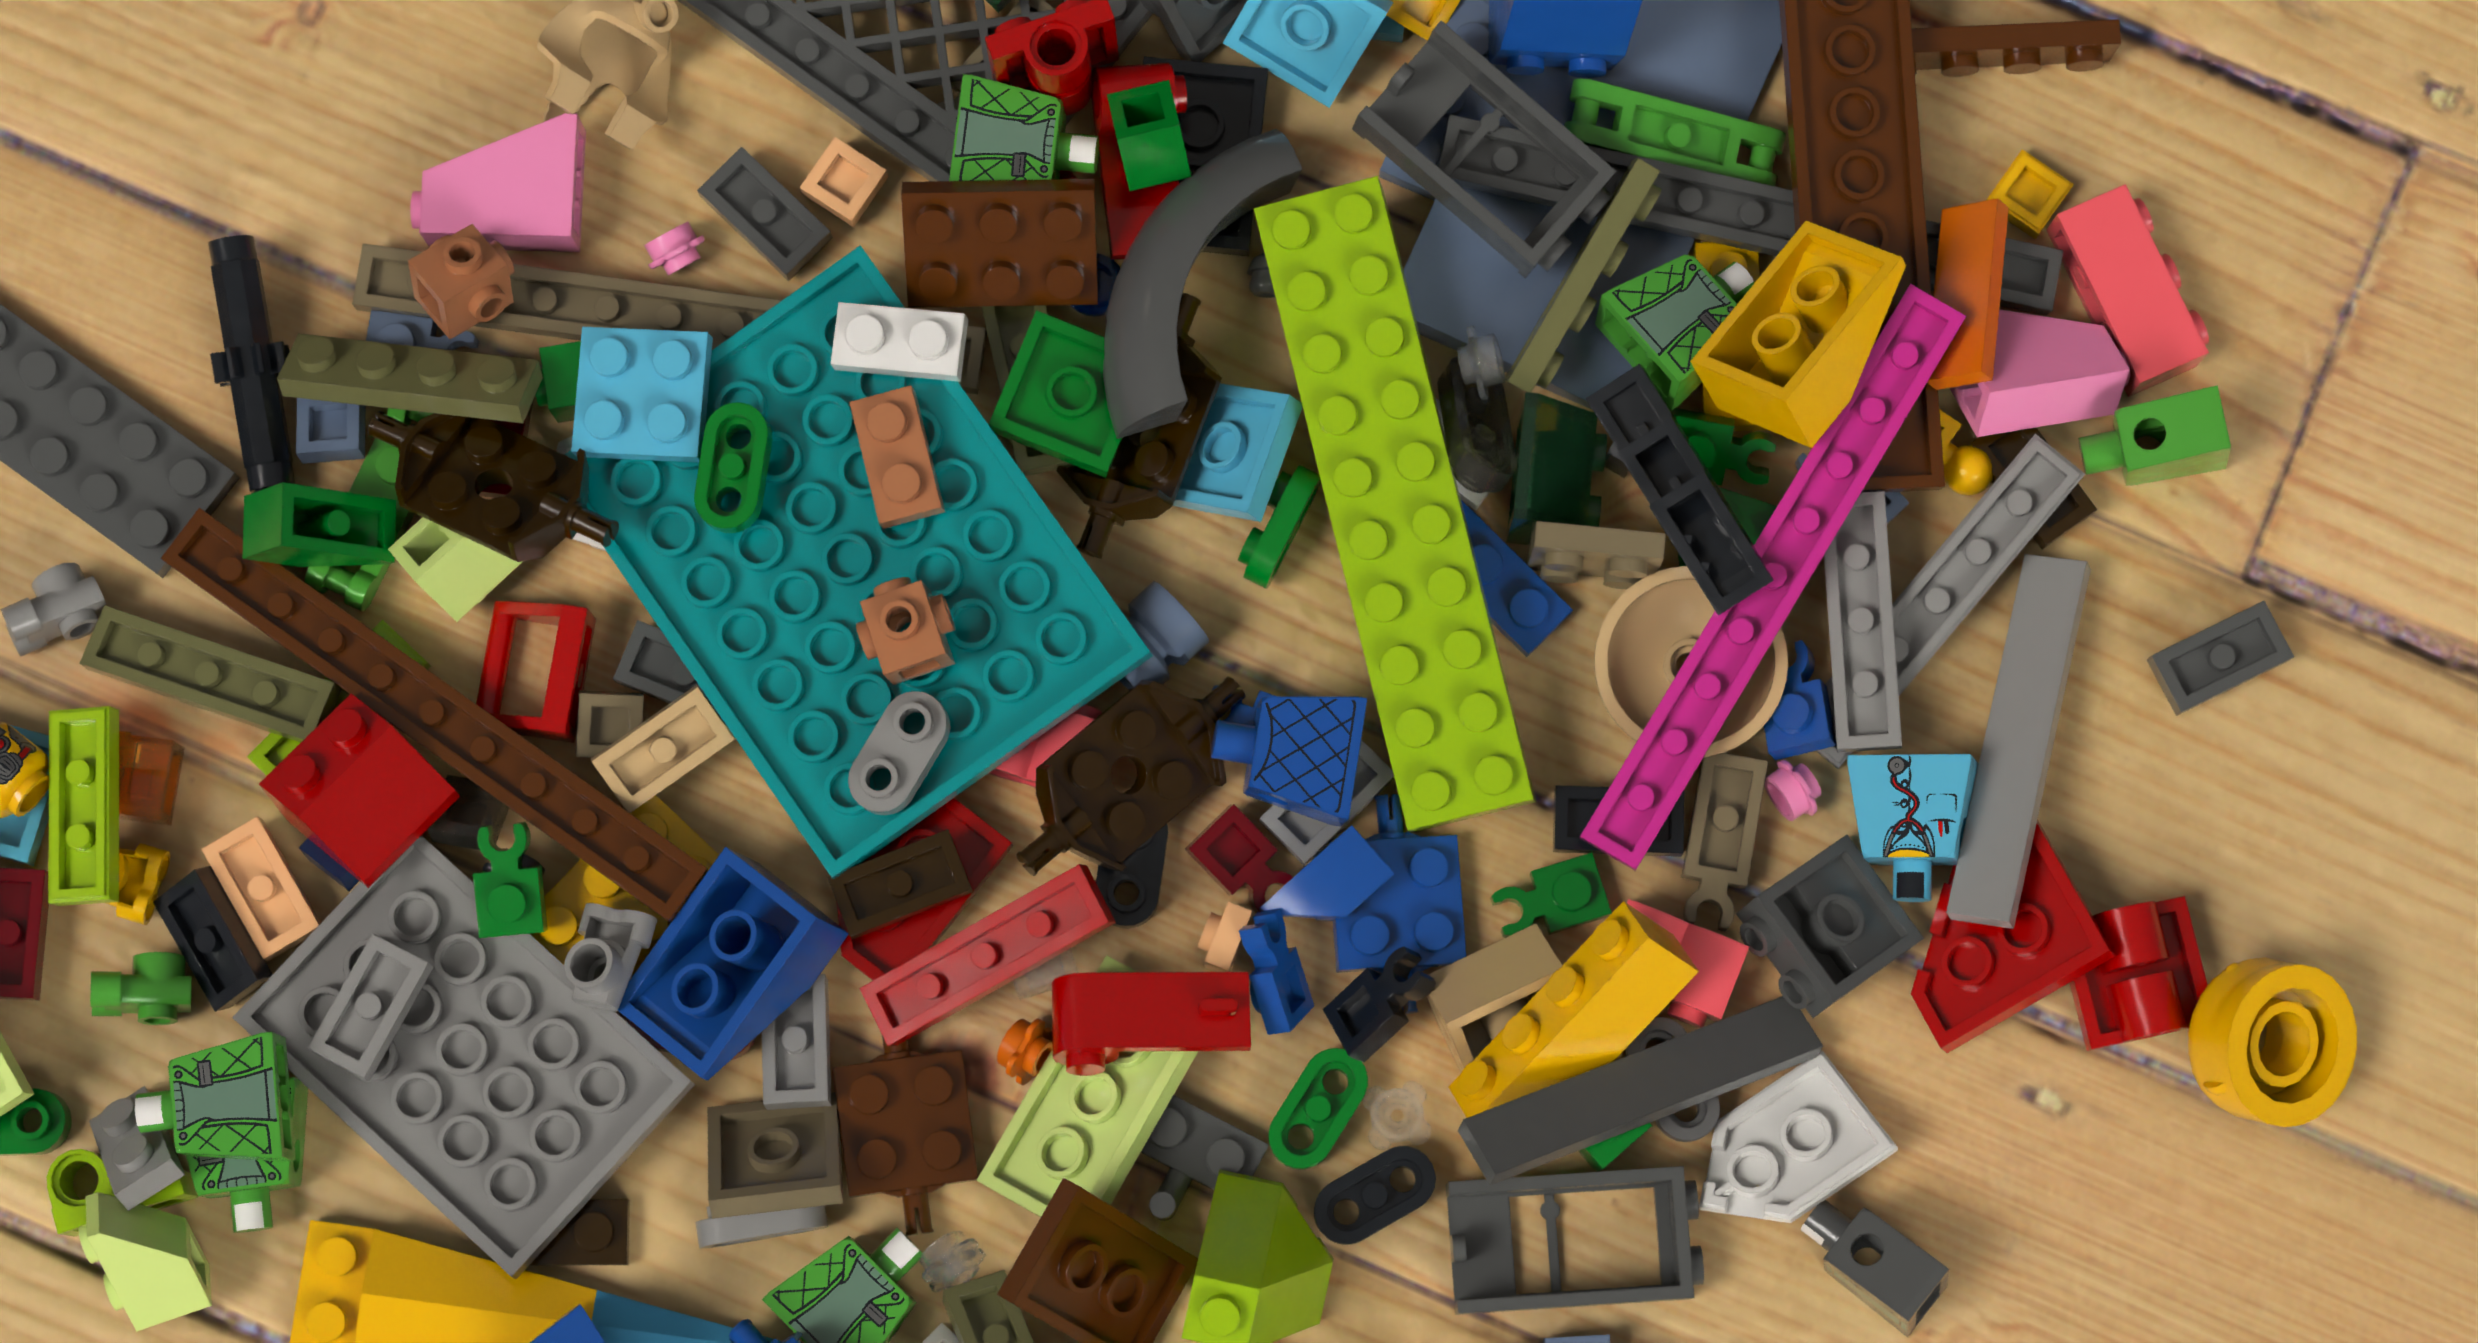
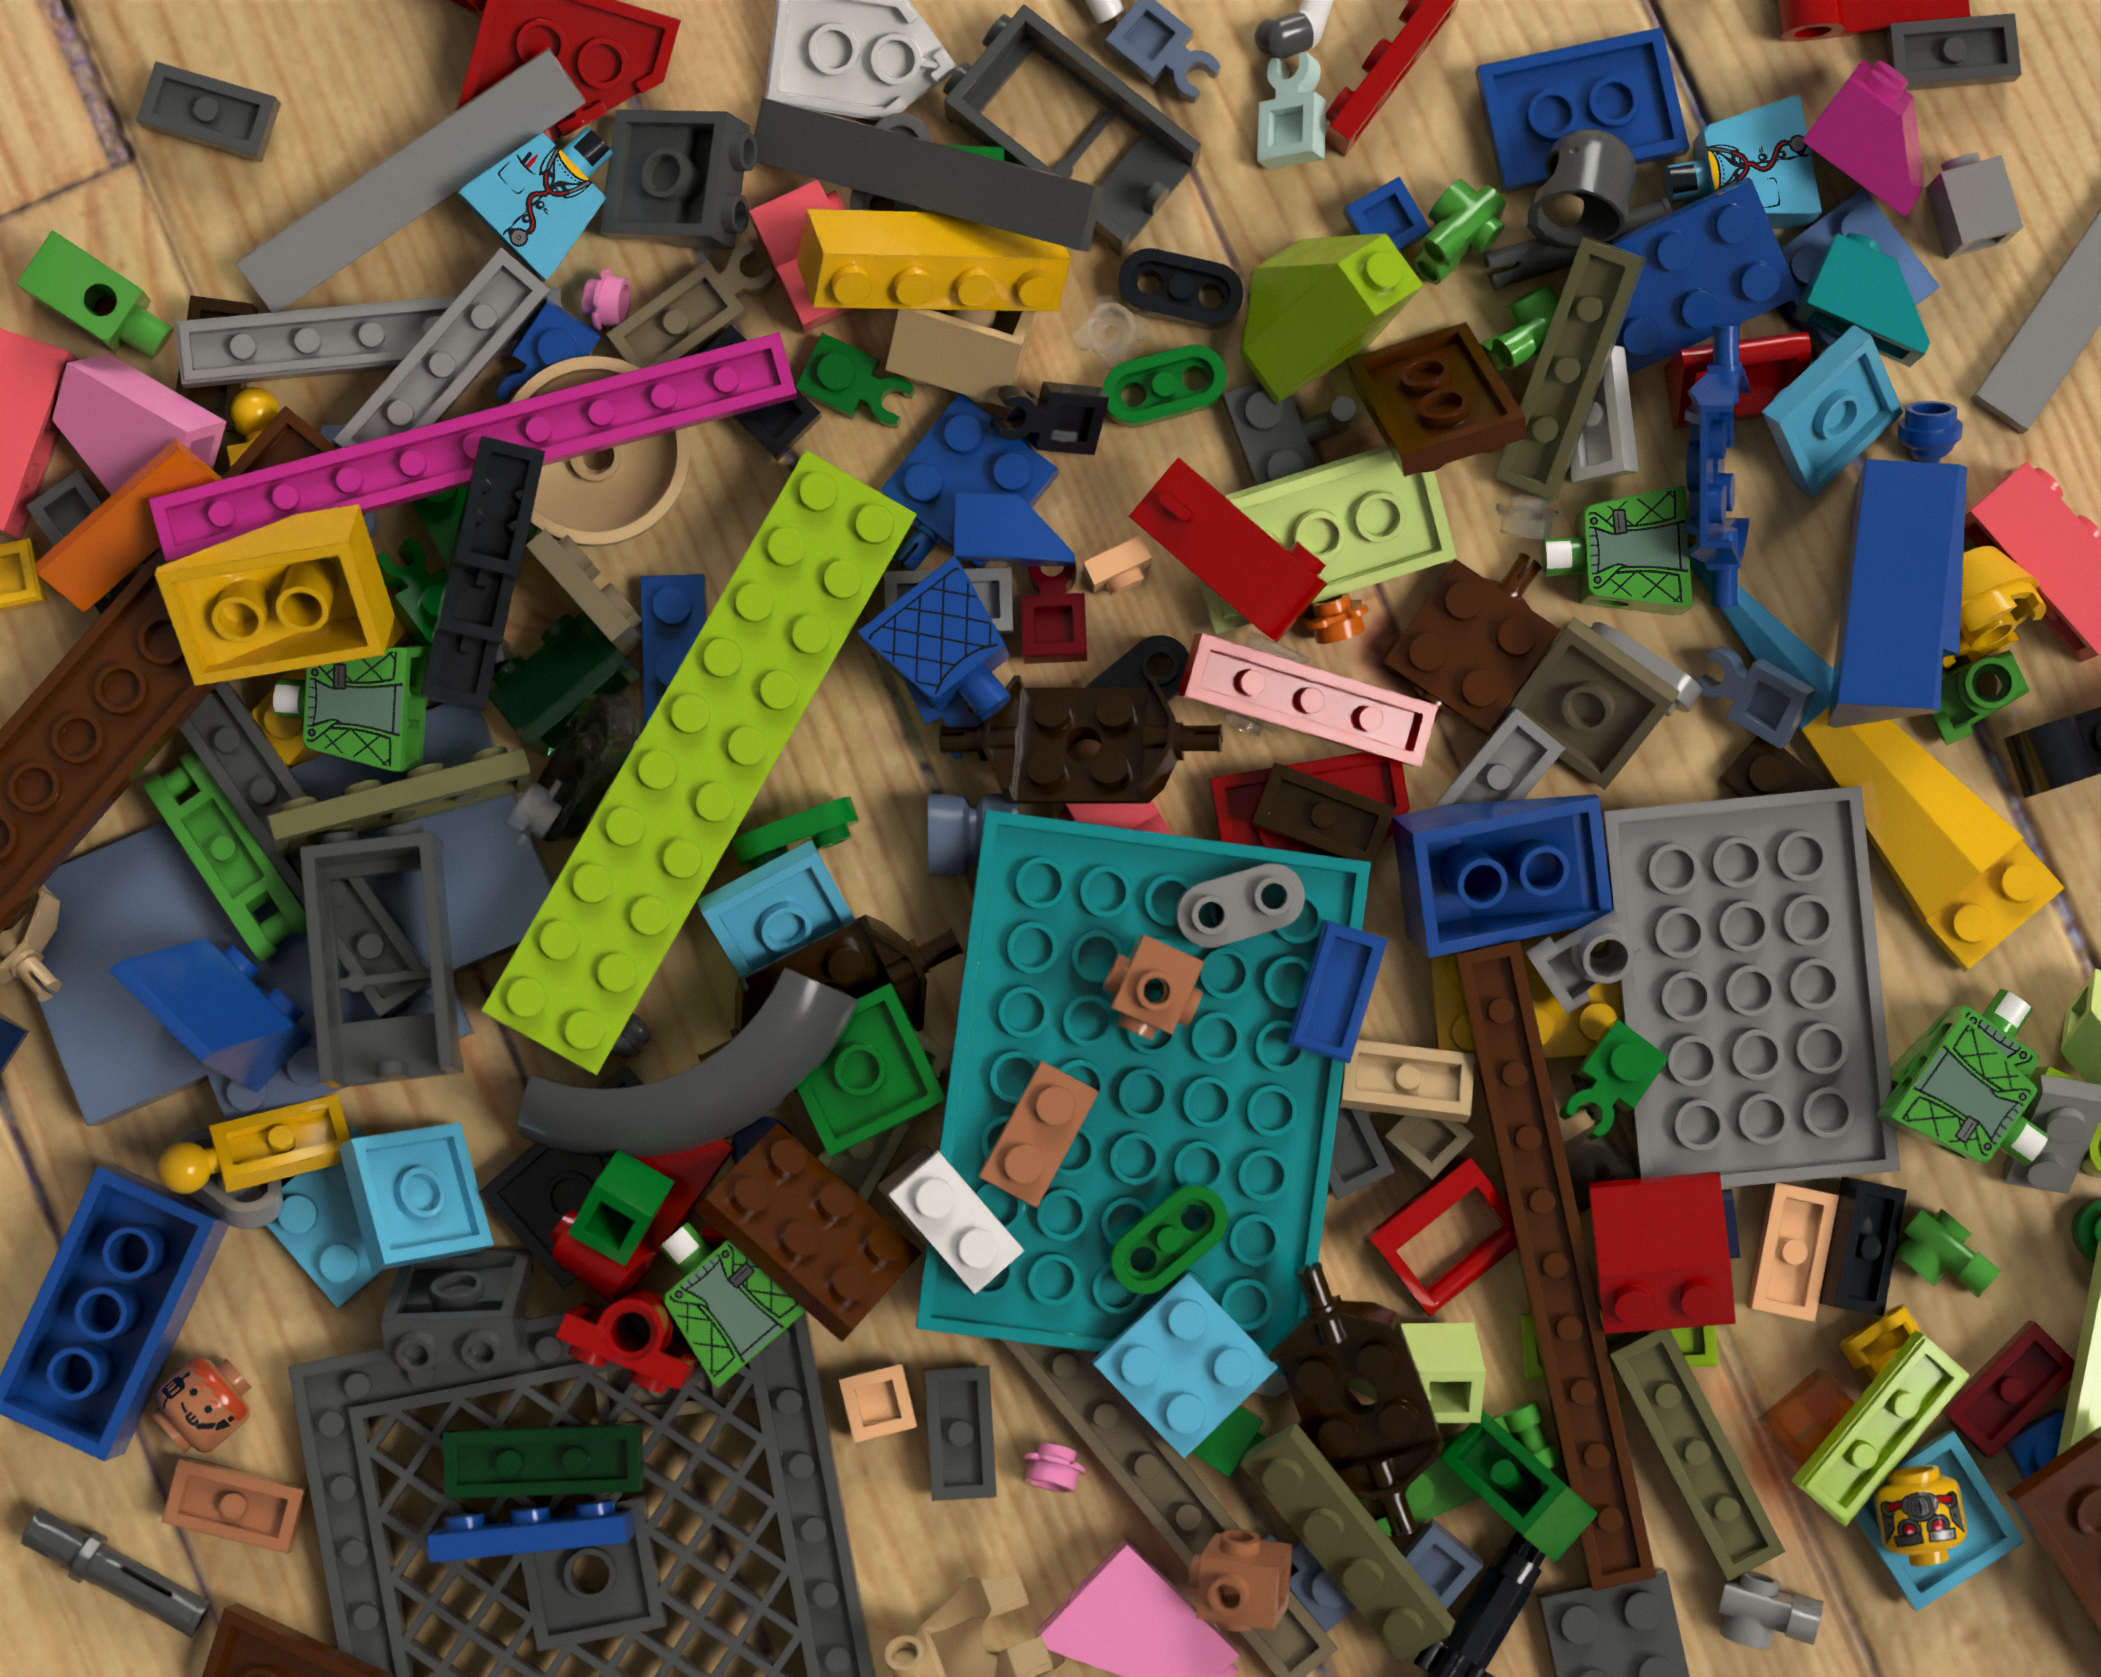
camera: 140 degrees left, 5 degrees up
(370, 1007) = (1795, 1078): light grey plate -> none
(648, 1285) = (1763, 698): none -> sand blue plate
(771, 758) = (1336, 991): none -> blue tile
(1278, 981) = (1109, 497): blue plate -> none

